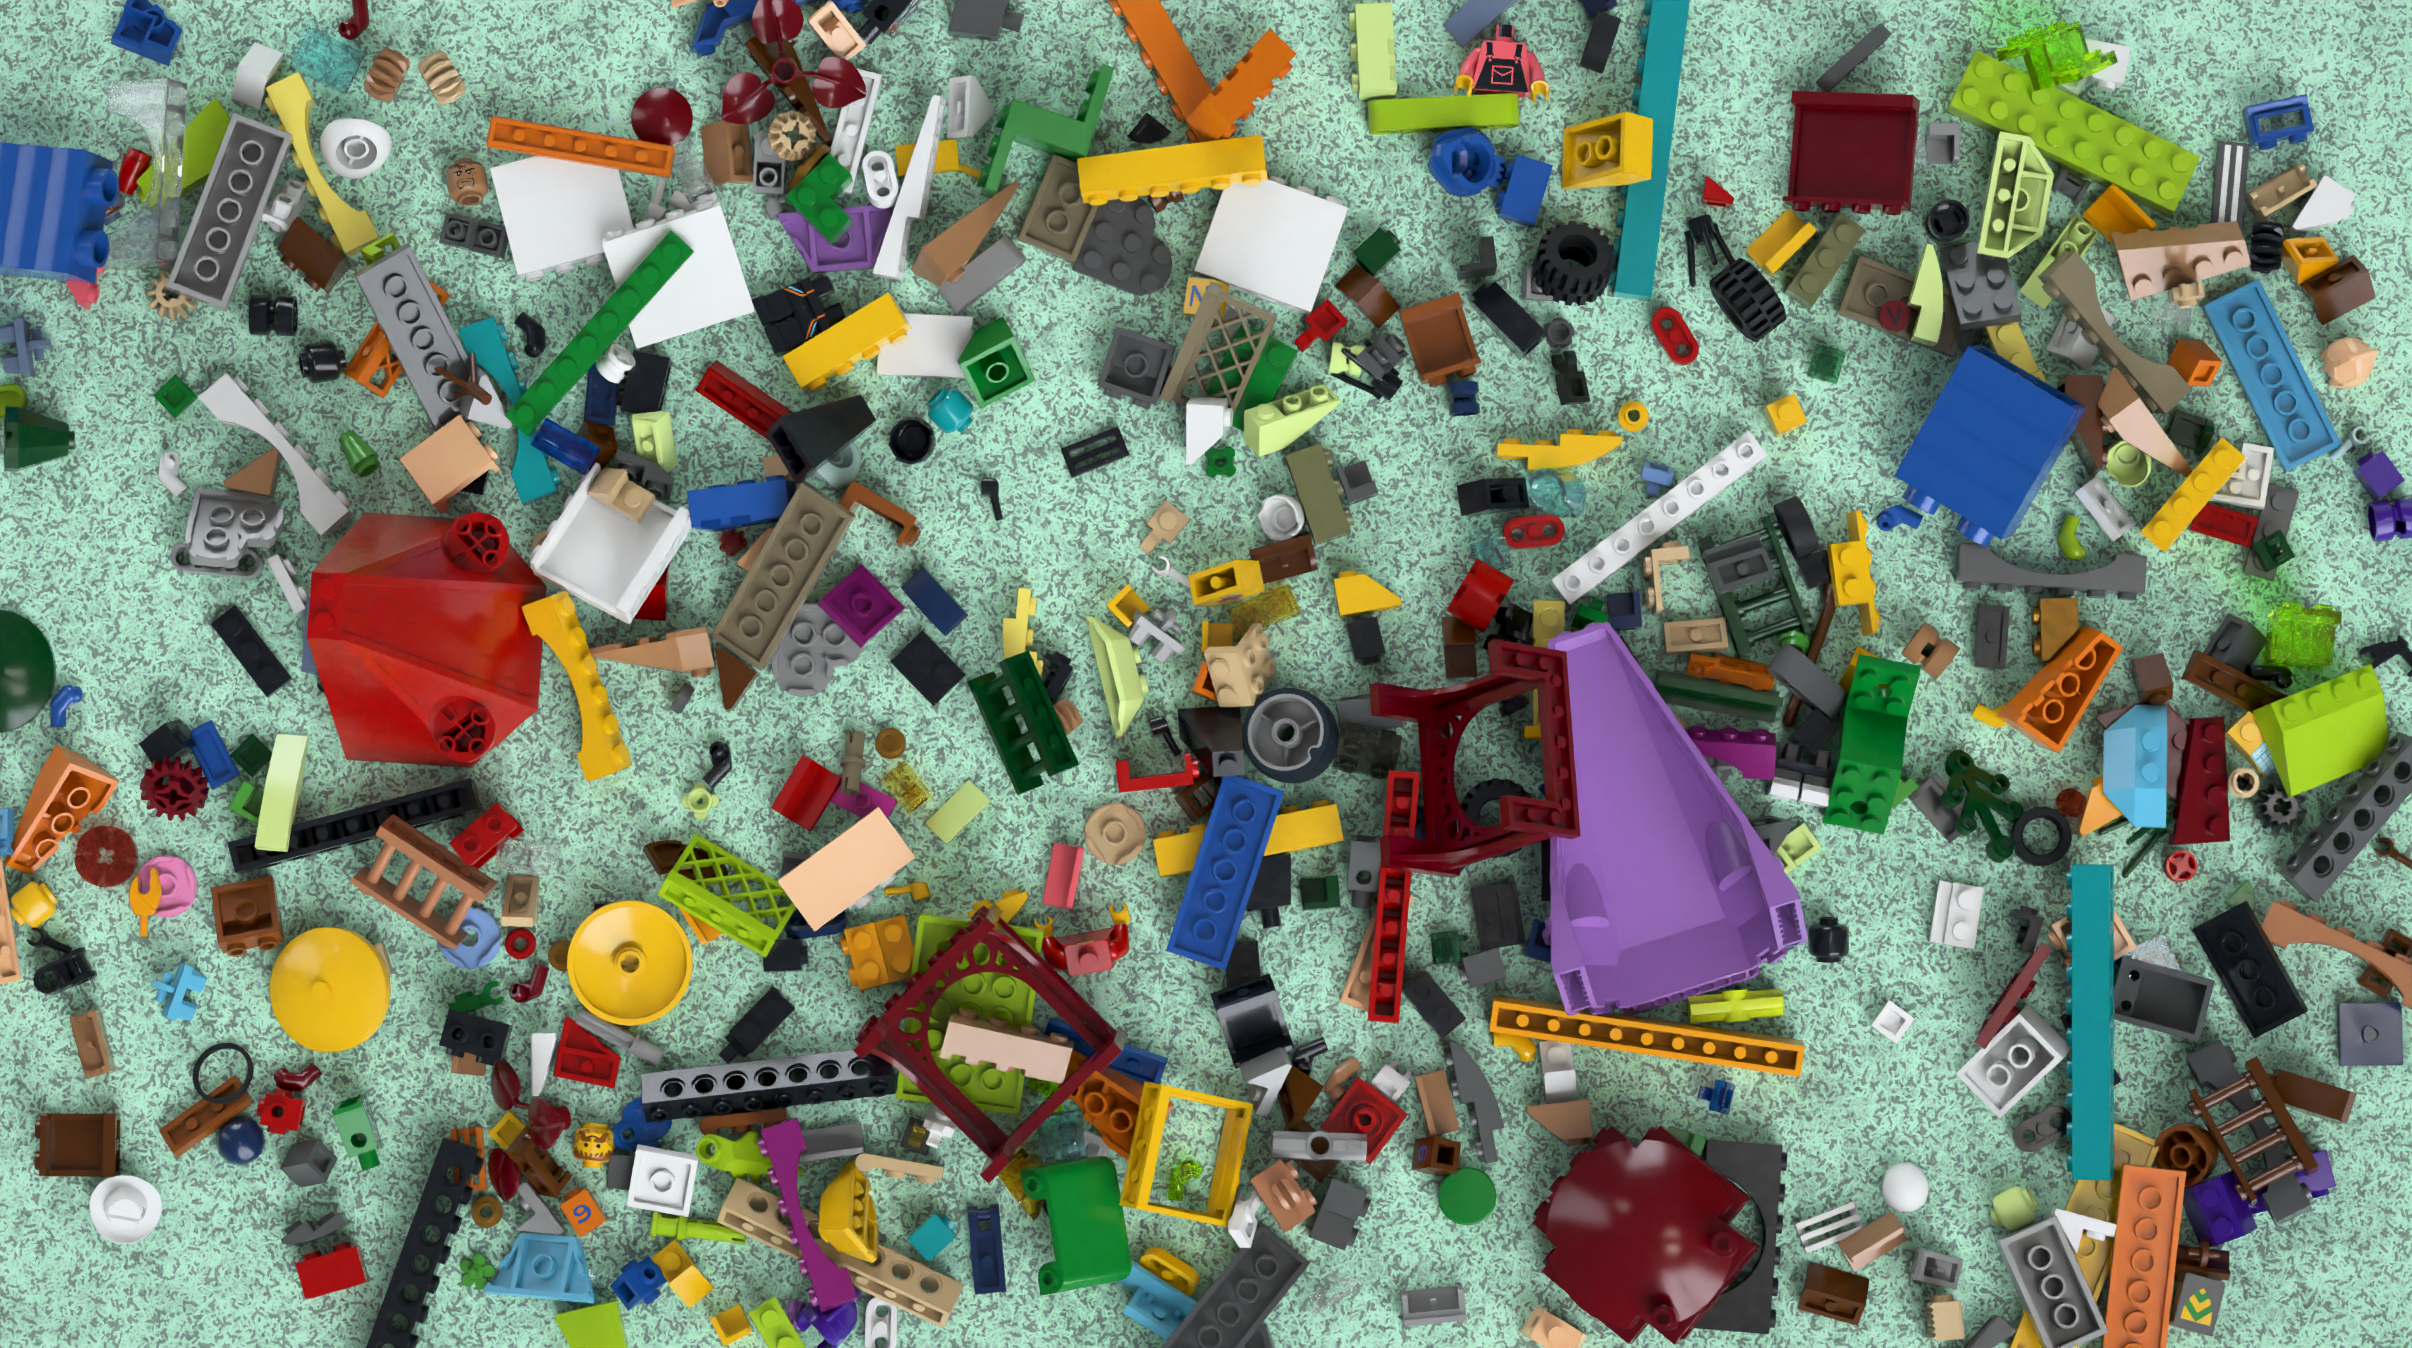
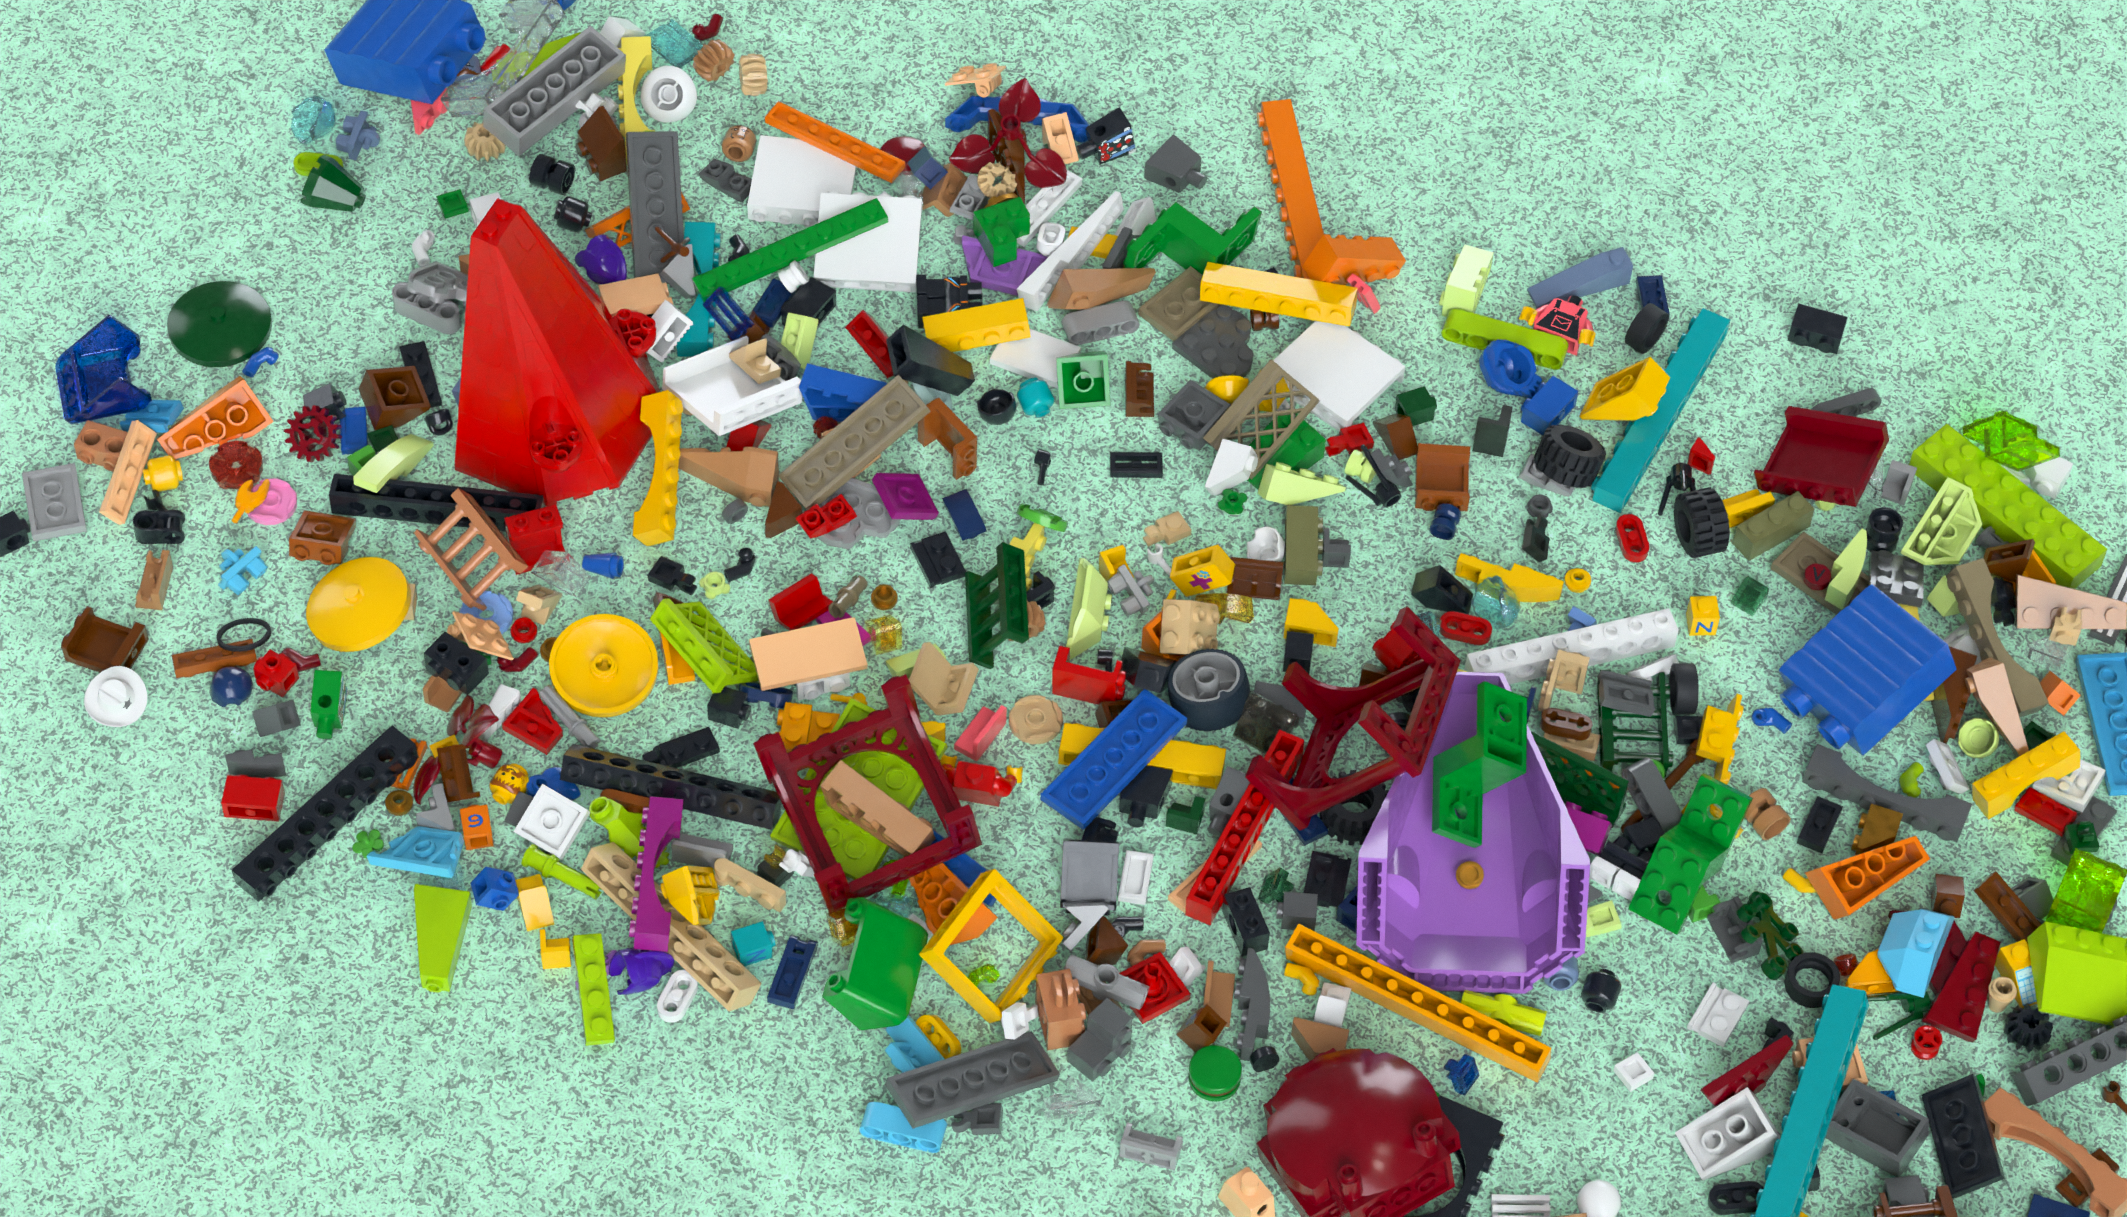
camera: 20 degrees right, 30 degrees down
(239, 700) = (393, 396): none -> reddish brown slope
(301, 707) = (439, 417): none -> black tile
(391, 422) = (602, 260): none -> dark purple helmet
(484, 985) = (479, 634): none -> light nougat hinge
(504, 493) = (670, 327): none -> white brick
(569, 825) = (604, 564): none -> blue cone
(645, 809) = (670, 573): none -> black plate
(698, 140) = (927, 168): none -> dark blue panel
(787, 672) = (829, 517): none -> red slope
(966, 171) = (1118, 251): none -> dark grey tile
(1001, 835) = (940, 684): none -> tan bracket
(1024, 578) = (1042, 517): none -> bright green tile
(1061, 351) = (1139, 390): none -> reddish brown hinge
(1161, 313) = (1227, 387): none -> yellow helmet
(1266, 125) = (1364, 293): none -> coral tile
(1296, 989) = (1135, 877): none -> white tile
(1507, 319) = (1503, 482): black slope -> none
(1510, 1159) = (1264, 1058): none -> black tile
(1640, 747) = (1479, 764): none -> green bracket
(1651, 871) = (1469, 875): none -> pearl gold plate
(1684, 615) = (1566, 724): none -> reddish brown beam
(1753, 506) = (1661, 665): none -> white plate
(2095, 215) = (2009, 559): none -> reddish brown slope
(2101, 259) = (2003, 600): none -> black plate

